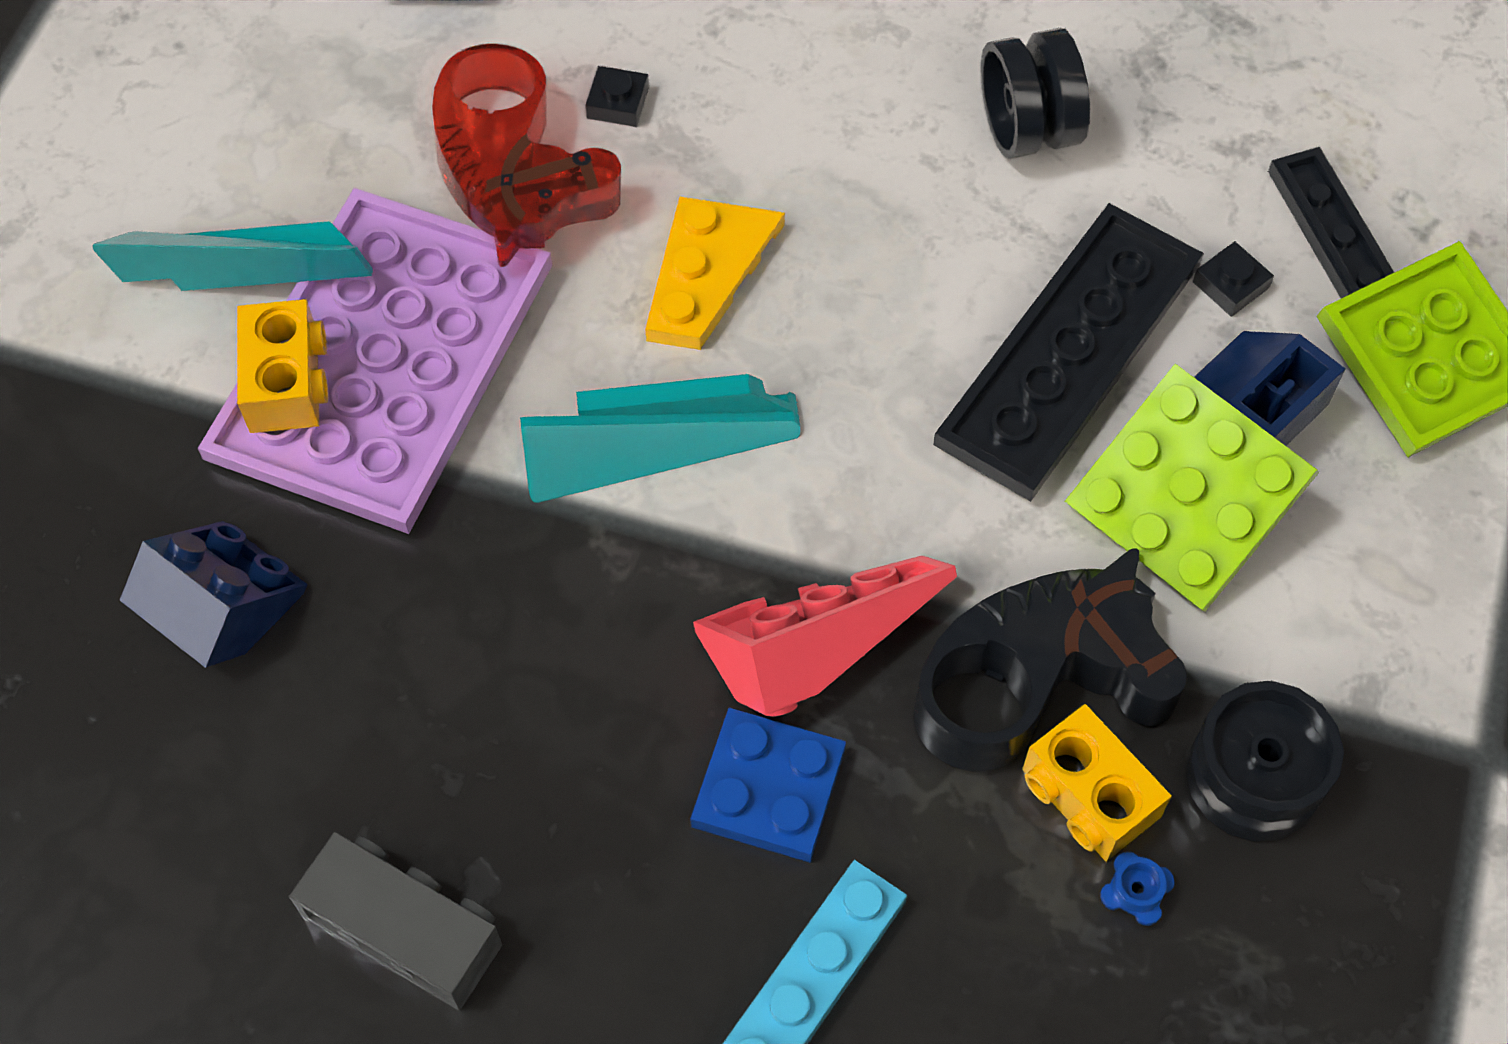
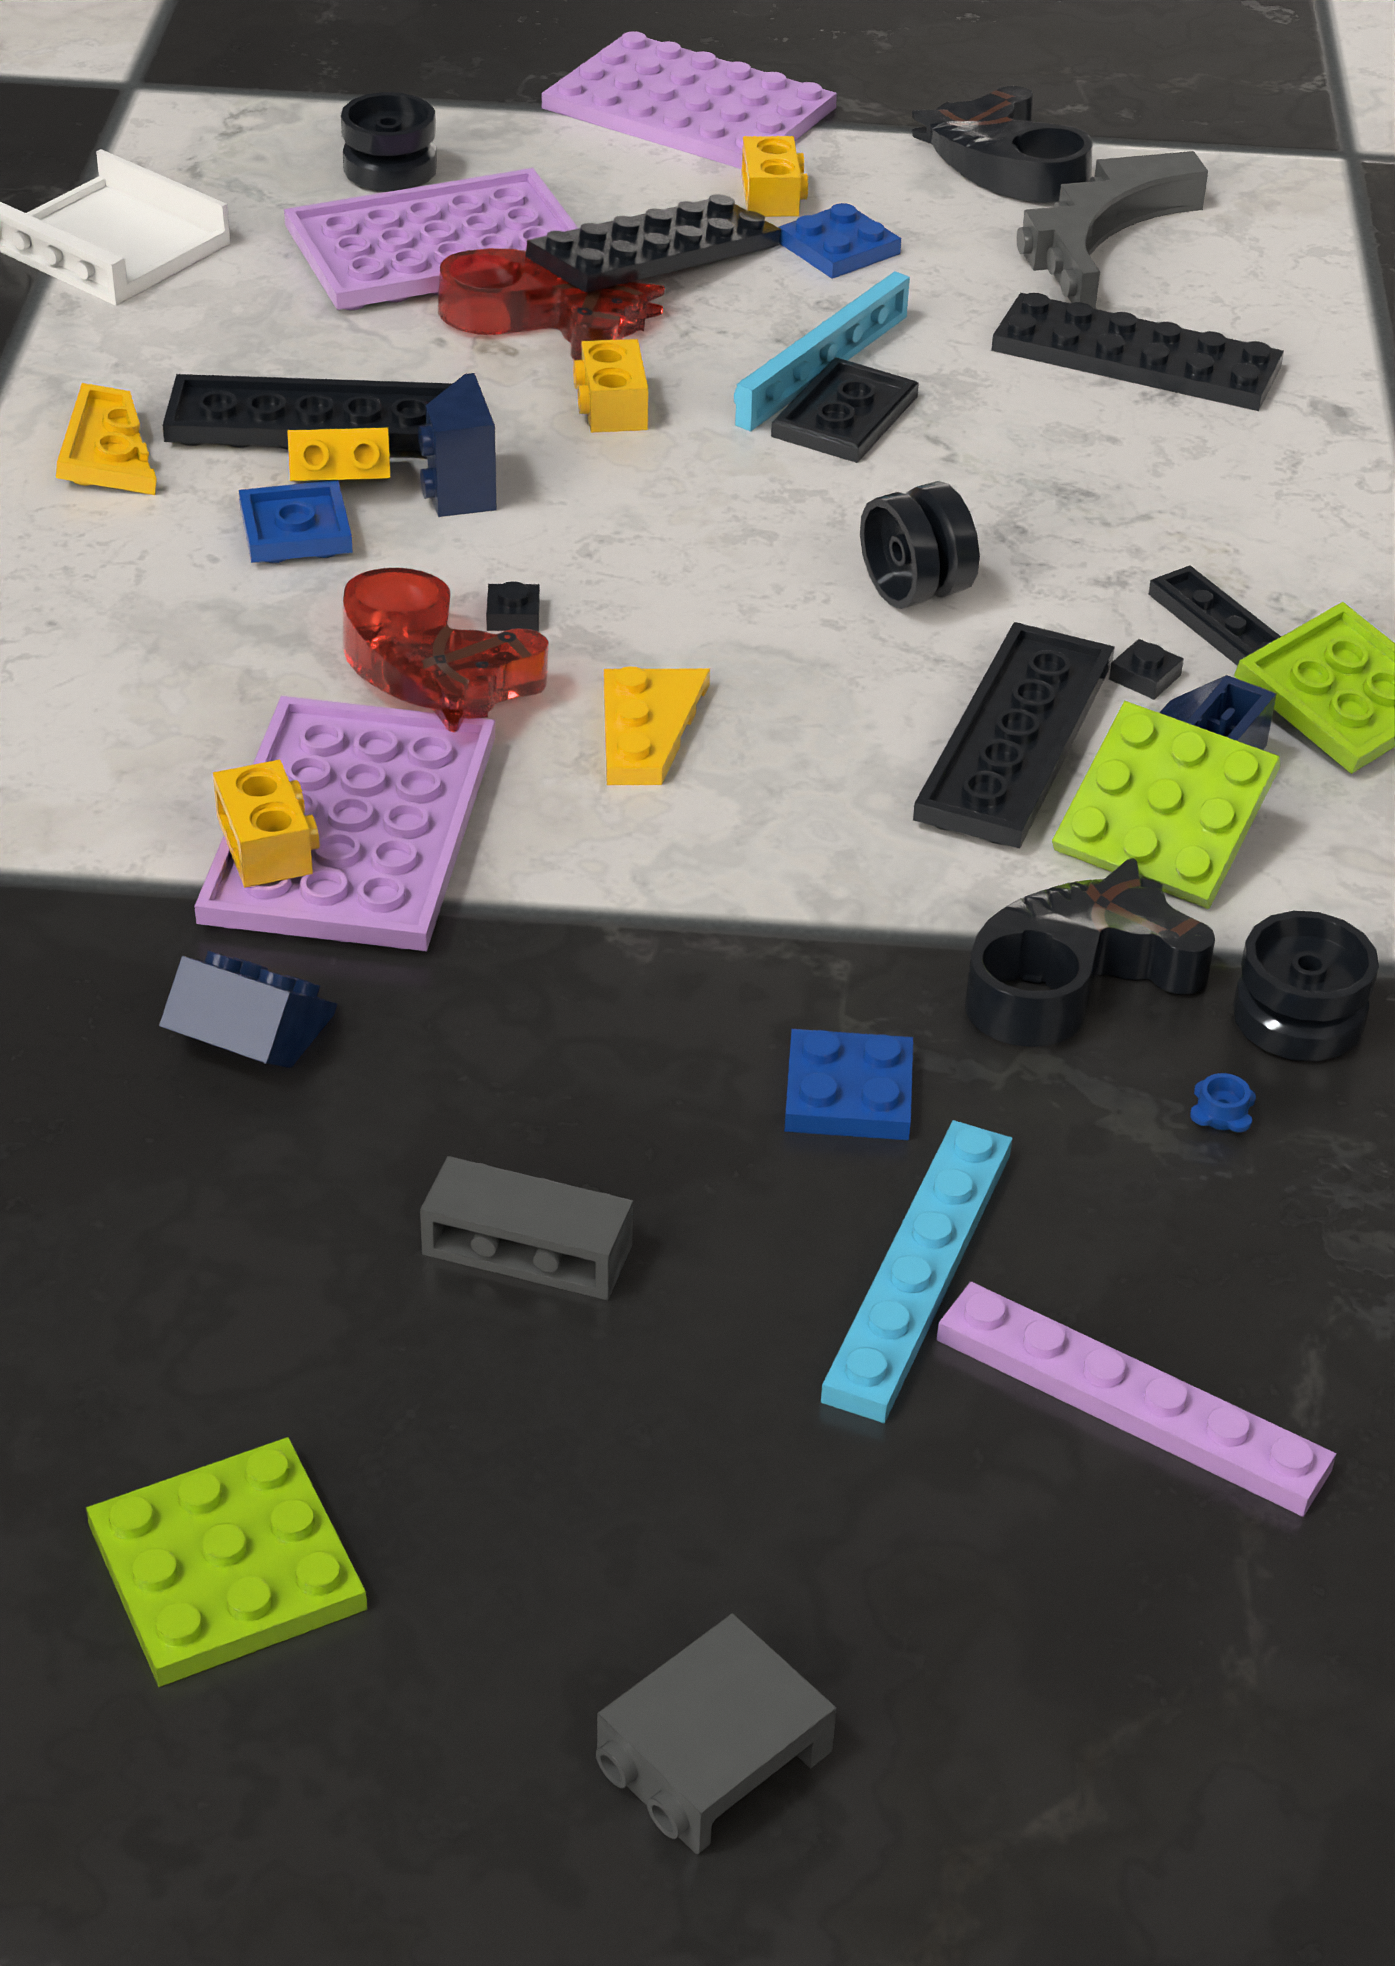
camera: 15 degrees left, 20 degrees down
(235, 256) = (182, 760): teal wedge -> none
(651, 431) = (637, 840): teal wedge -> none
(801, 646) = (850, 968): coral wedge -> none
(1108, 774) = (1157, 1030): yellow brick -> none

